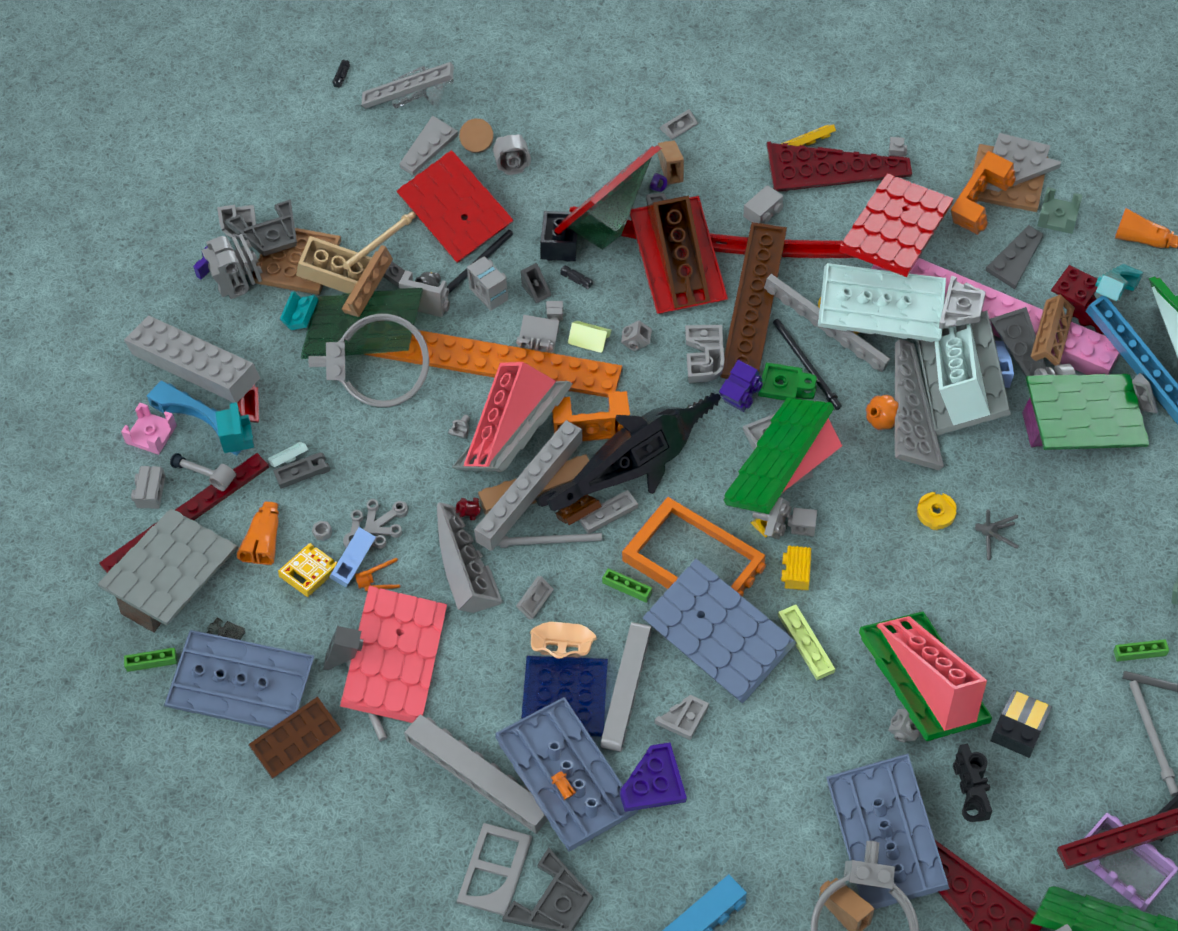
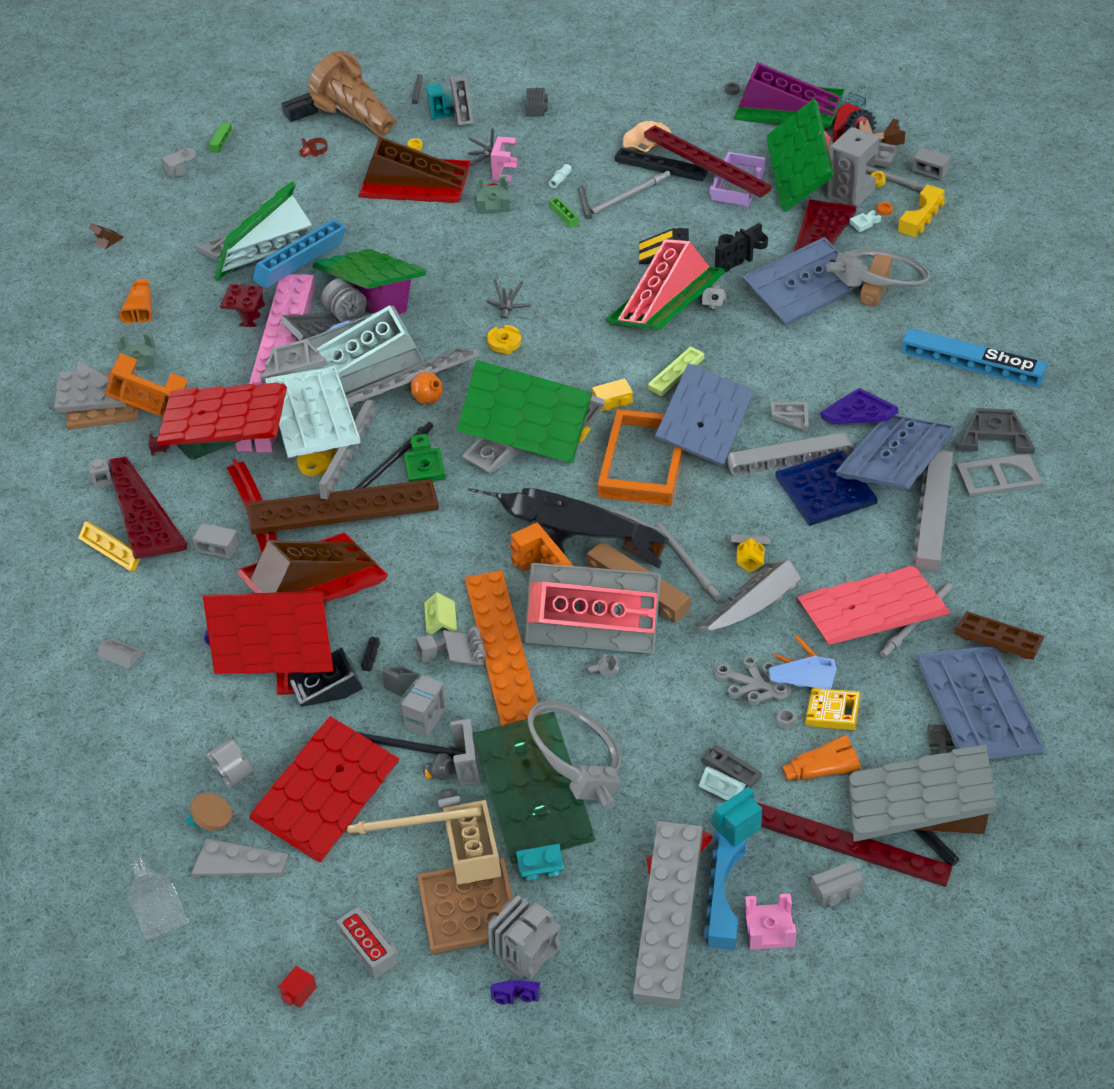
camera: 115 degrees left, 10 degrees down
(150, 659) = (1011, 784): bright green piece -> none
(219, 478) = (789, 814): light grey piece -> none
(230, 211) = (447, 981): light grey brick -> none
(270, 235) = (452, 928): dark grey wing -> none
(297, 146) = (297, 987): none -> red brick
(306, 191) = (367, 942): none -> light grey brick
(341, 73) = (151, 1006): black axle -> none
(342, 647) = (903, 626): dark grey slope -> none
(368, 282) = (486, 789): medium nougat fence -> none
(407, 85) = (167, 896): light grey plate -> none
(468, 508) = (692, 617): dark red brick -> none
(512, 584) = (750, 555): none -> yellow brick
(528, 485) = (674, 569): light grey brick -> none
(563, 636) = (774, 490): light nougat piece -> none
(563, 785) = (910, 441): orange pin -> none
(627, 585) = (696, 489): bright green piece -> none
(636, 335) = (424, 567): light grey brick -> none
(671, 162) = (182, 628): medium nougat slope -> none
(703, 336) = (400, 530): light grey wing -> none
(705, 365) = (438, 513): light grey brick -> none
(741, 386) = (453, 474): dark purple brick -> none
(1015, 257) = (200, 369): dark grey wing -> none
(1049, 326) = (292, 306): medium nougat fence -> none
(1116, 280) = (242, 263): teal arch -> none
(1144, 394) = (325, 250): light grey slope -> none

